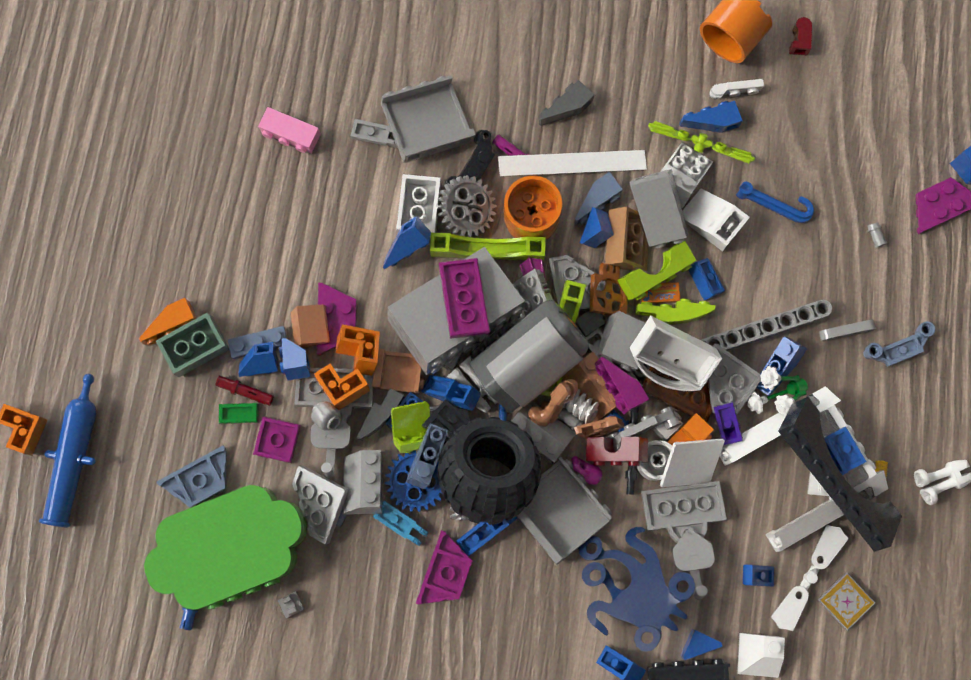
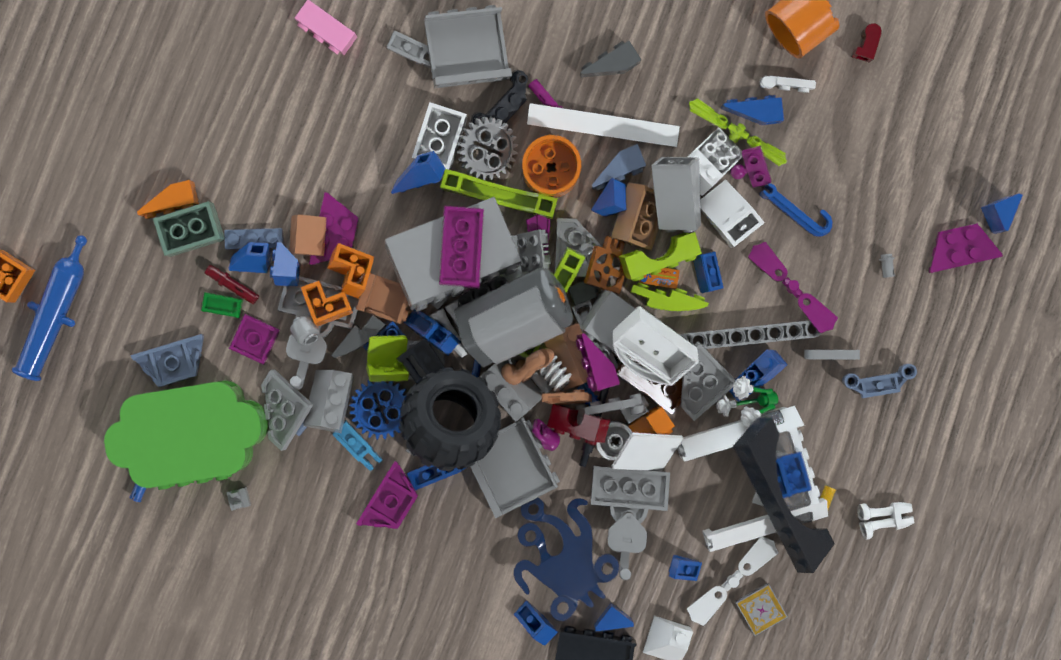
camera: 10 degrees right, 10 degrees up
(427, 456) = (394, 390): sand blue slope -> none
(726, 170) = (755, 167): none -> magenta plate
(728, 423) = (691, 422): dark purple slope -> none
(821, 291) = (816, 312): none -> magenta piece

